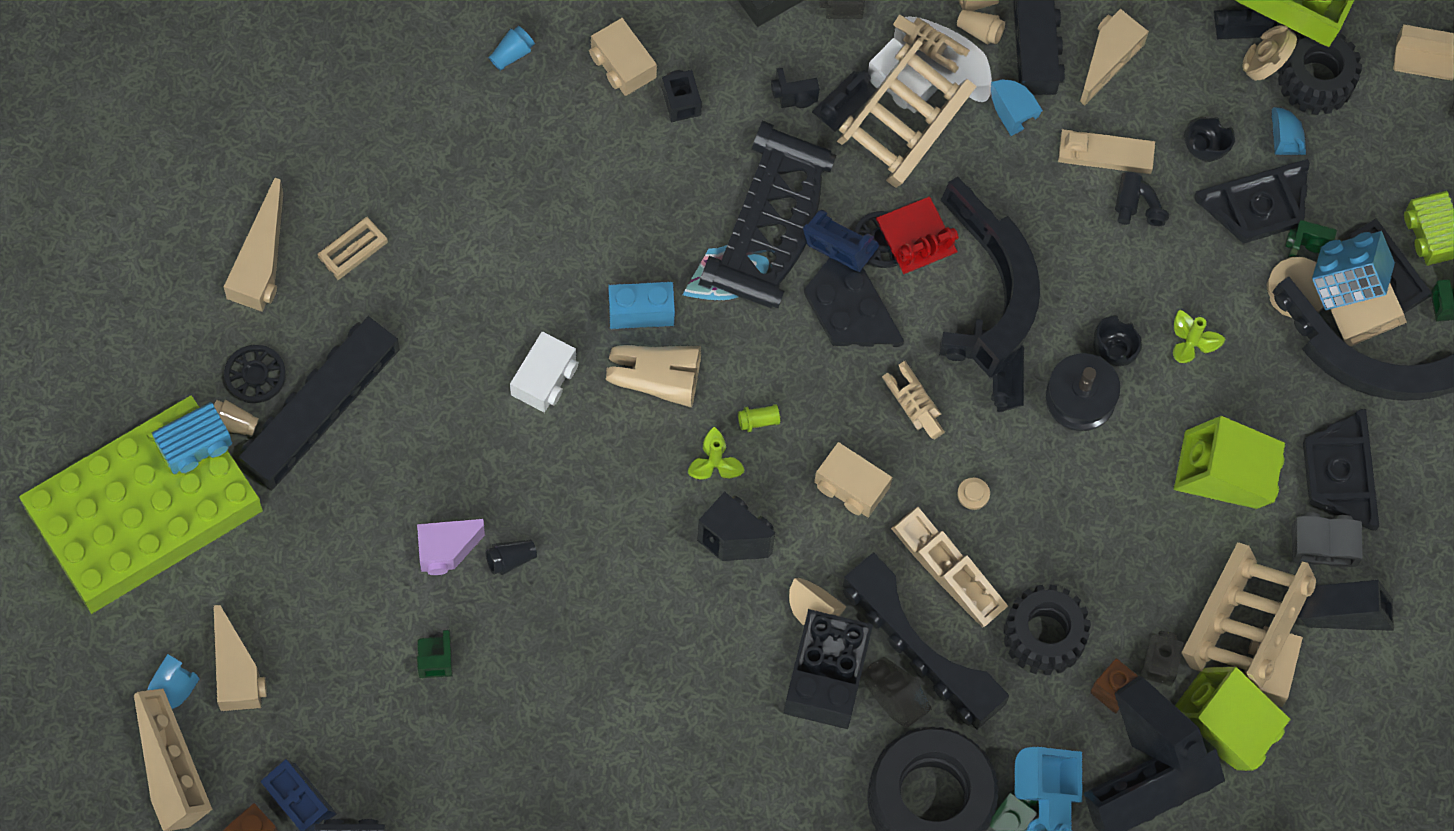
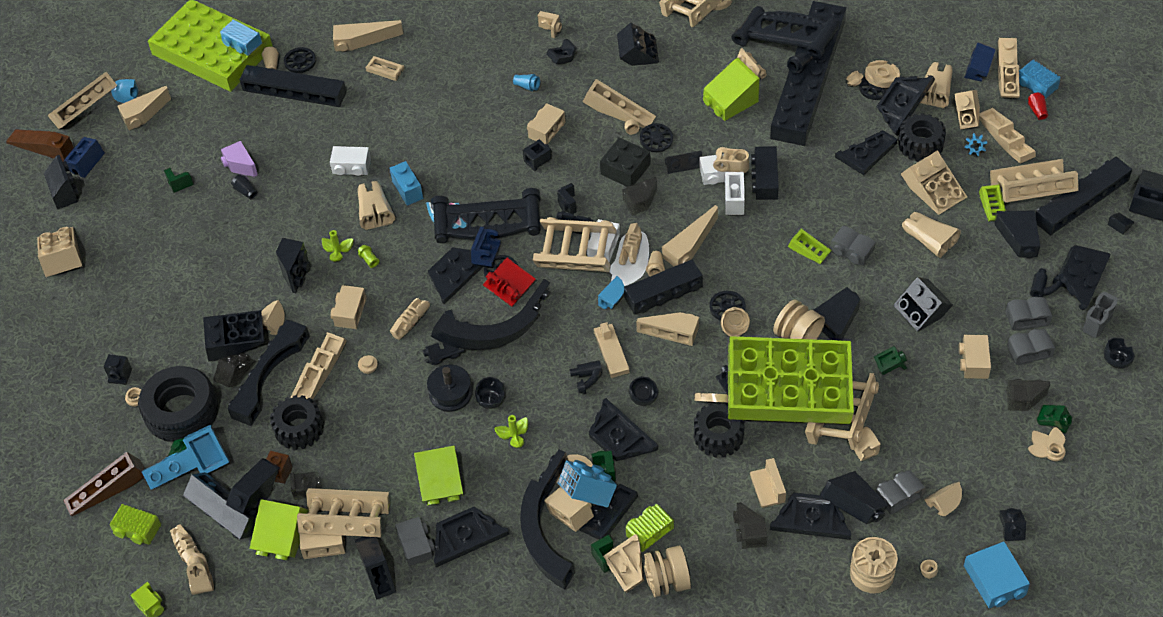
camera: 75 degrees right, 15 degrees down
(1287, 133) = (672, 430): dark azure brick -> none

